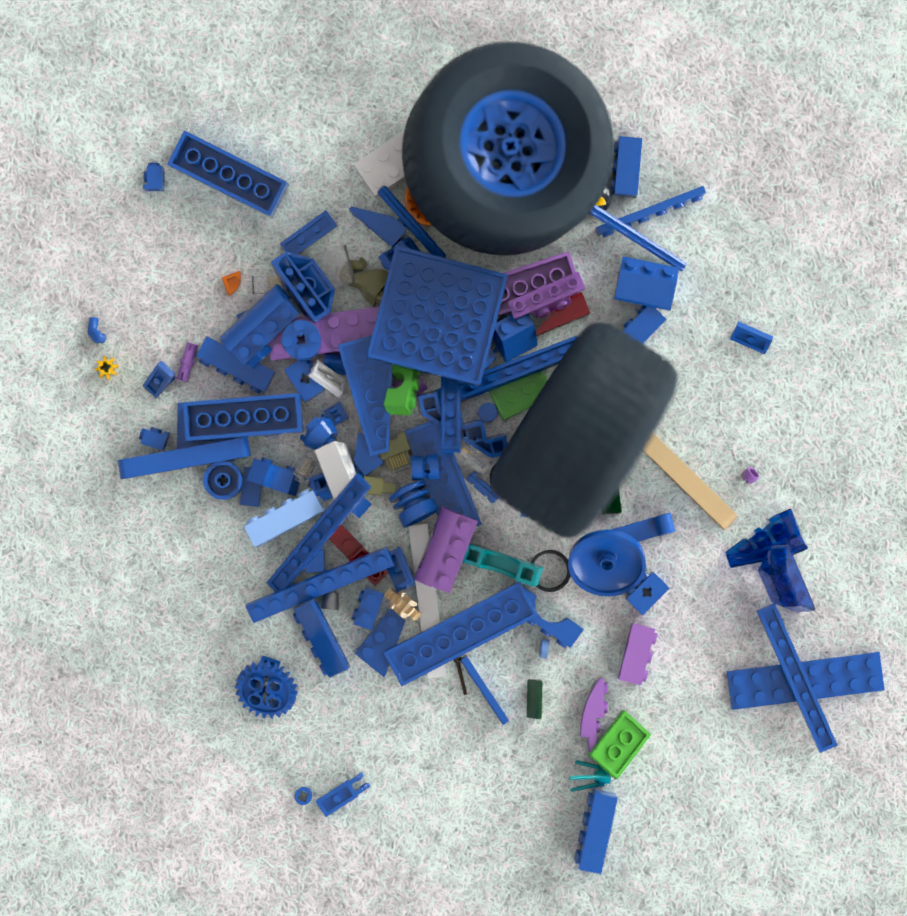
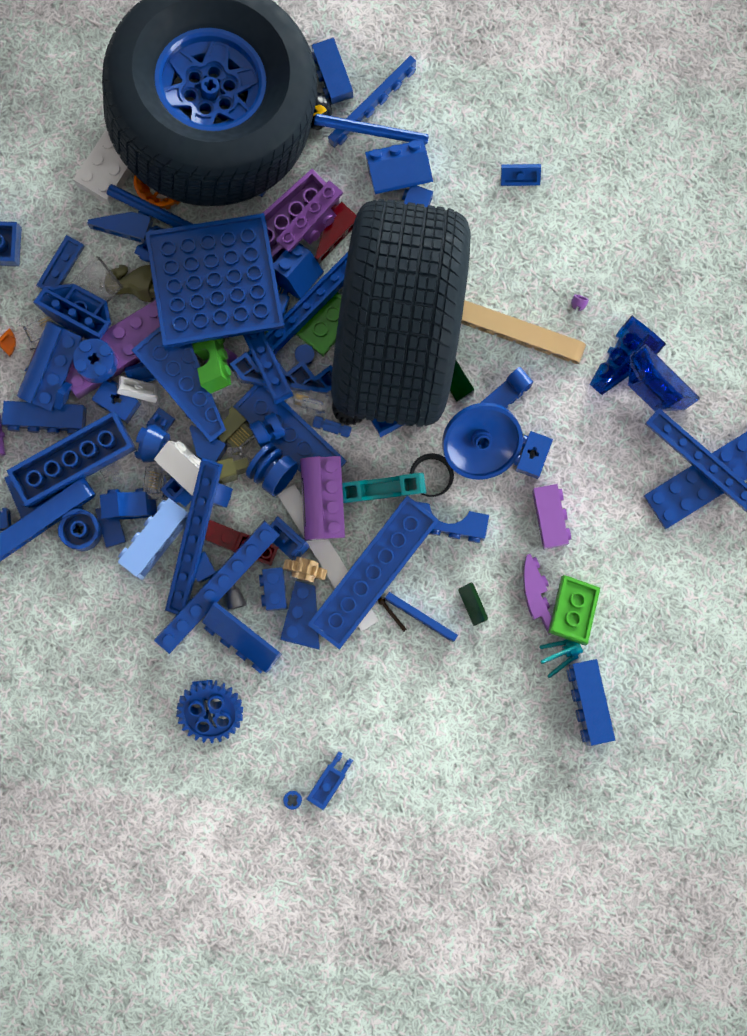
camera: 20 degrees left, 5 degrees down
(544, 646) = (460, 552): medium blue tile -> none

